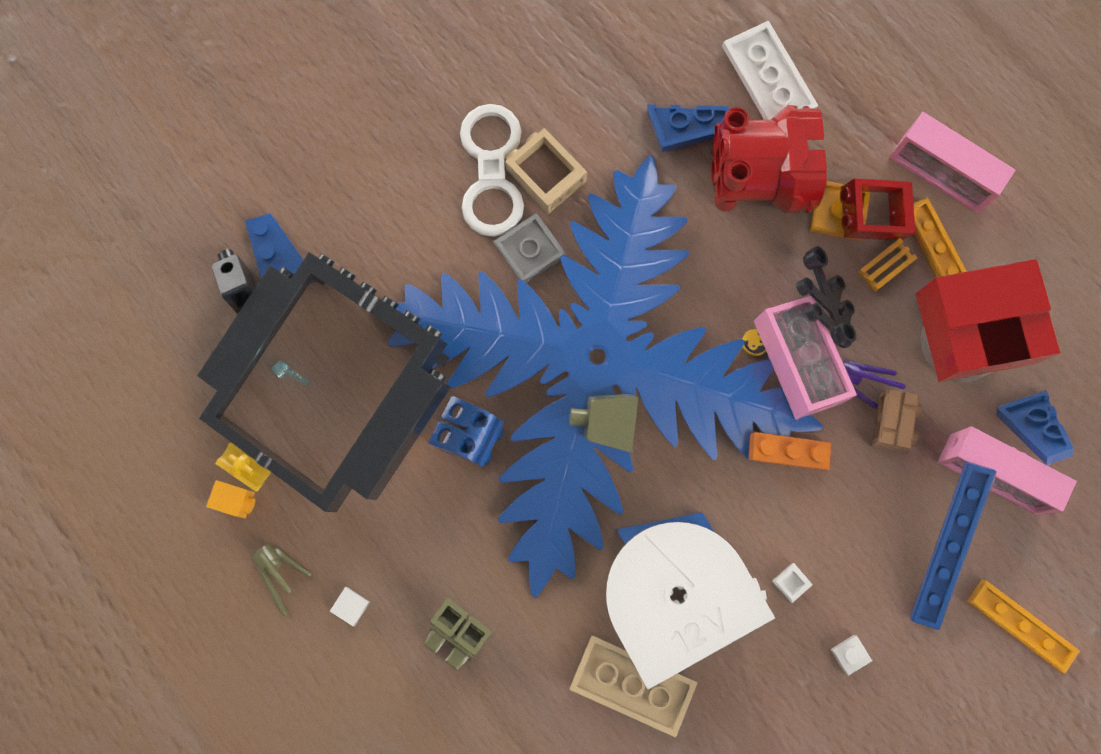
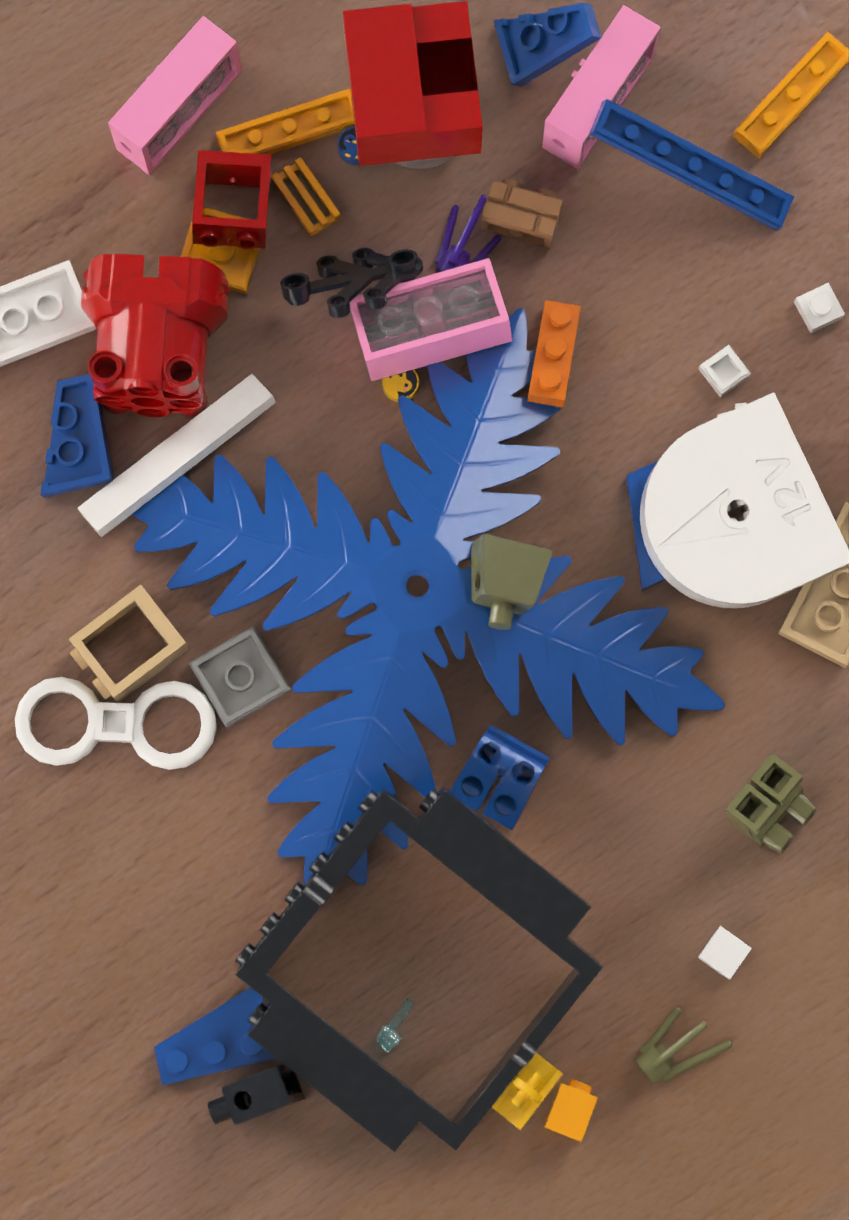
camera: 85 degrees left, 0 degrees up
(685, 191) = (176, 455): none -> white tile

